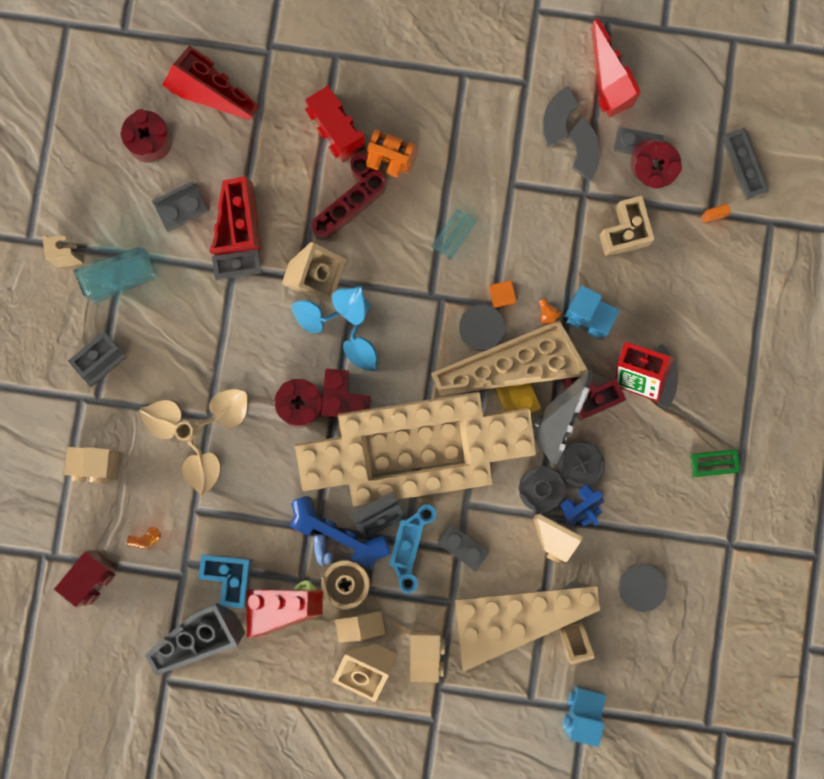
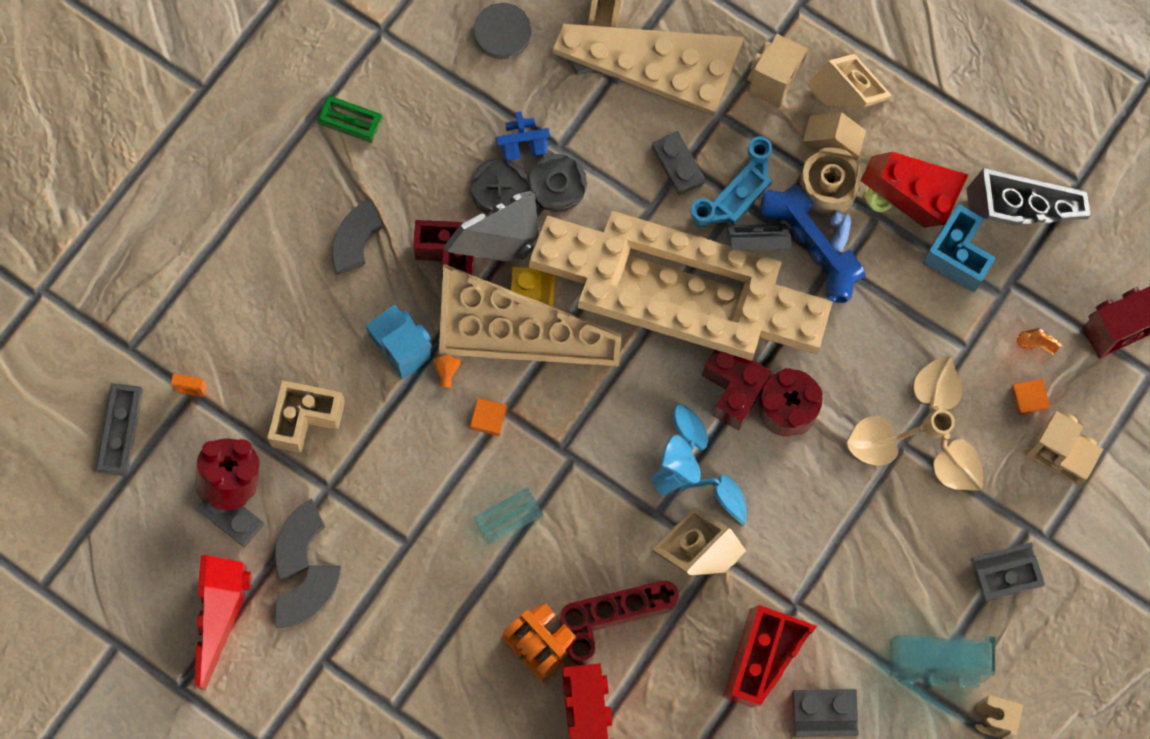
camera: 155 degrees left, 10 degrees down
(133, 495) = (1030, 396): none -> orange tile
(236, 264) = (789, 601): dark grey plate -> none
(481, 327) = (532, 390): dark grey tile -> none
(556, 539) = (570, 118): slope -> none
(643, 371) = (374, 248): red slope -> none

